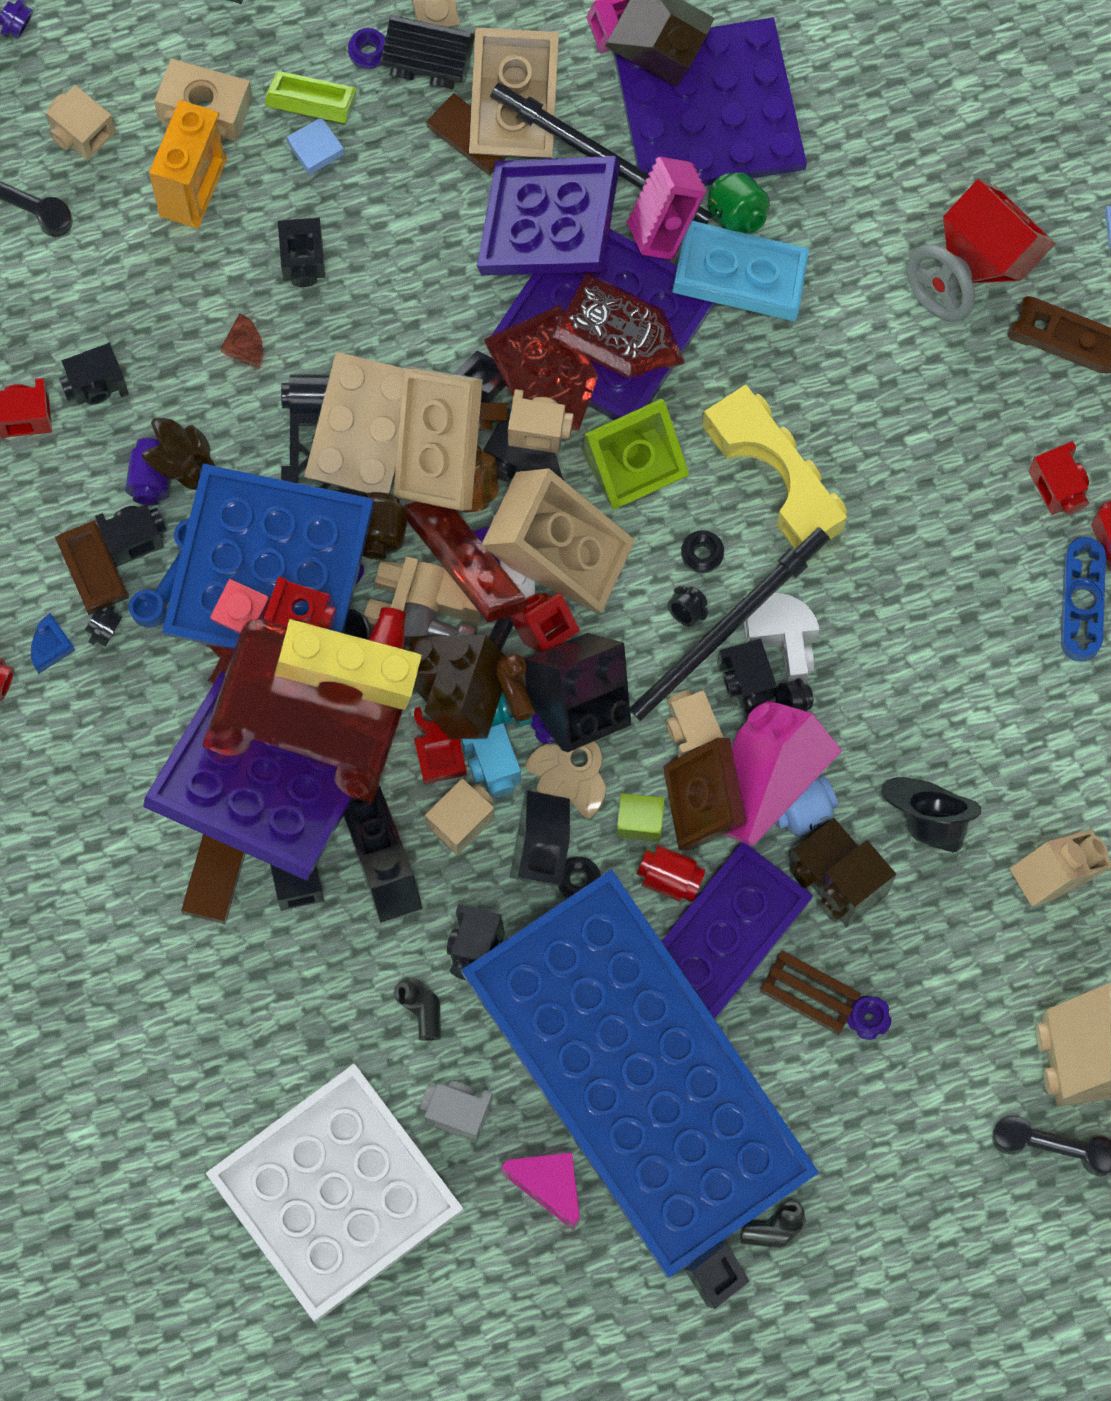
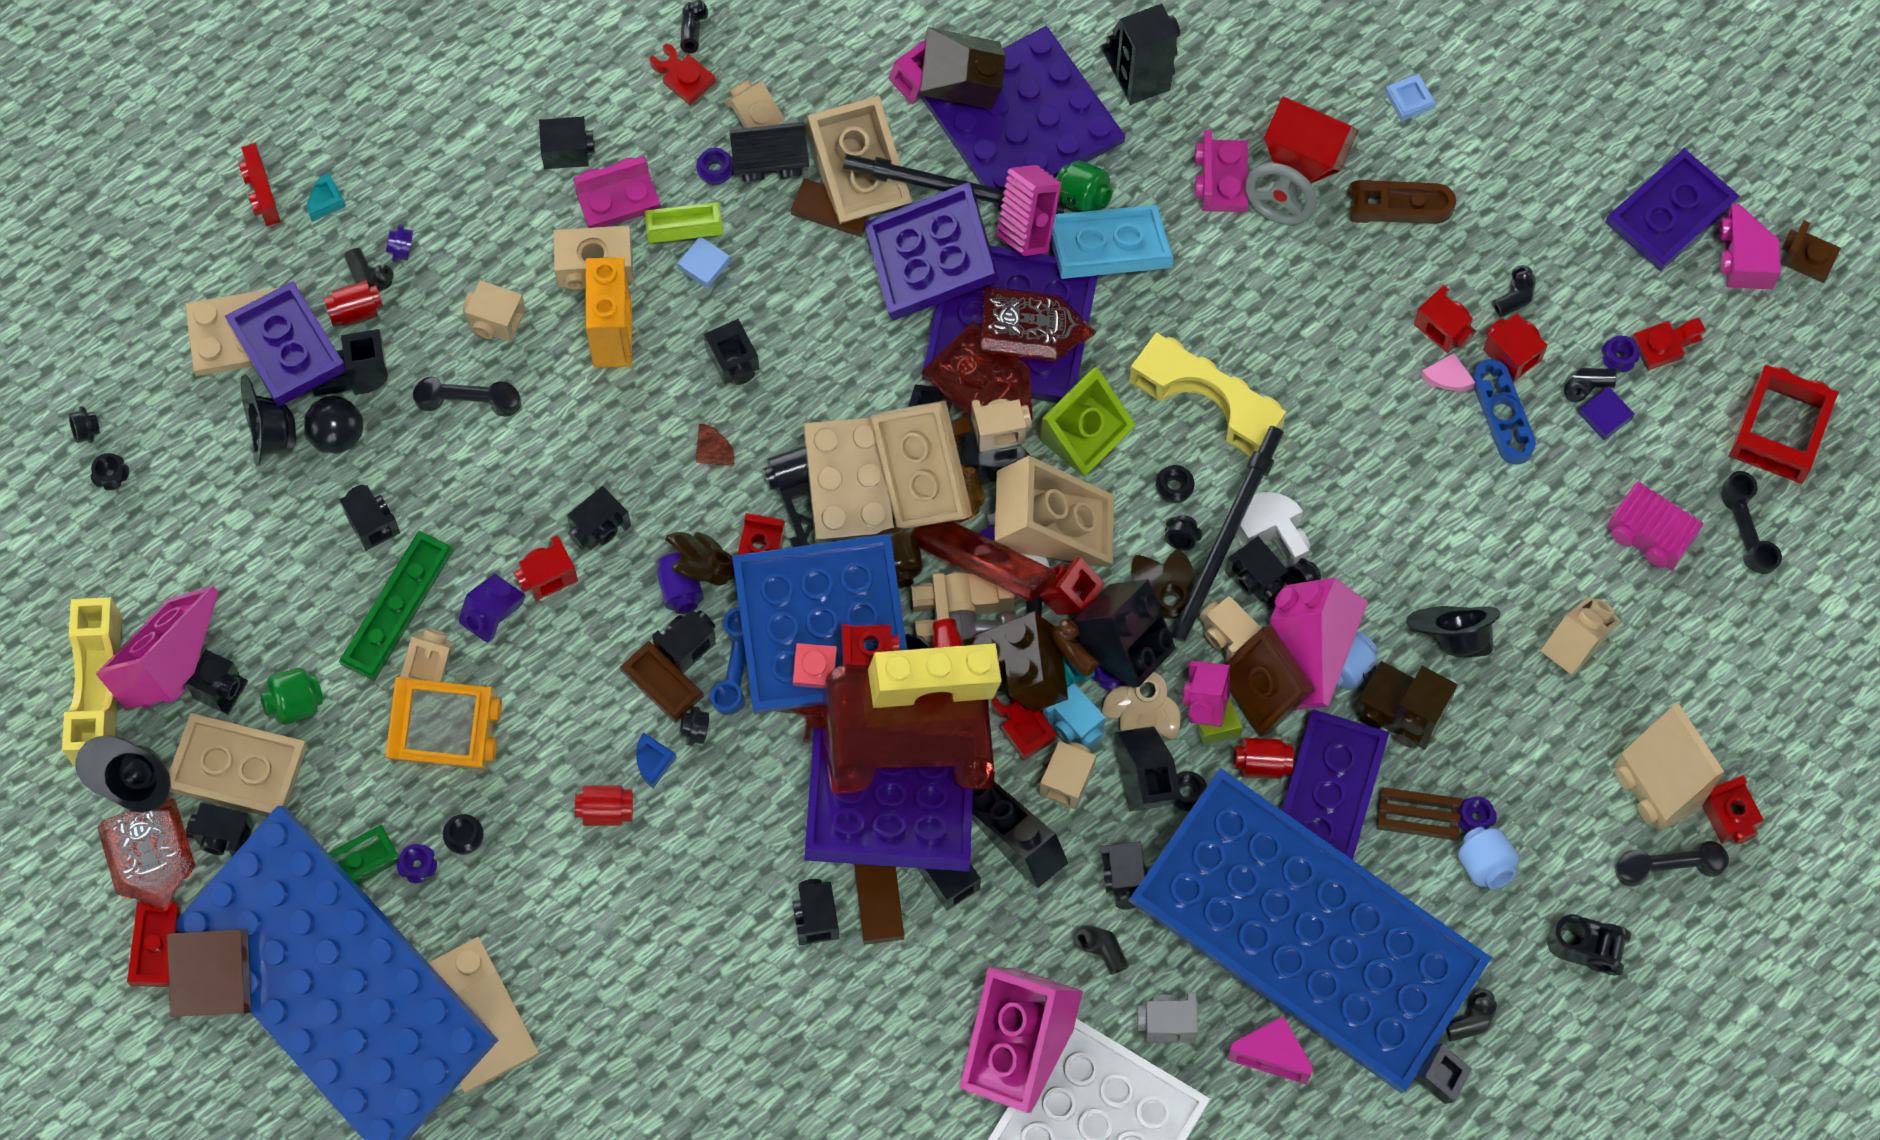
camera: 20 degrees left, 5 degrees down
(144, 863) = (816, 912): none -> black brick
(255, 41) = (616, 192): none -> dark pink bracket
(255, 447) = (762, 531): none -> red brick
(293, 1068) = (1018, 1036): none -> dark pink slope
(639, 784) = (1207, 692): none -> dark pink brick
(648, 649) = (1166, 579): none -> dark brown plate
(858, 82) = (1143, 53): none -> black wedge
(861, 1067) = (1488, 857): none -> light blue head
(892, 239) = (1223, 174): none -> dark pink bracket
(933, 1199) = (1598, 945): none -> black piece
(1041, 539) = (1448, 375): none -> bright pink tile

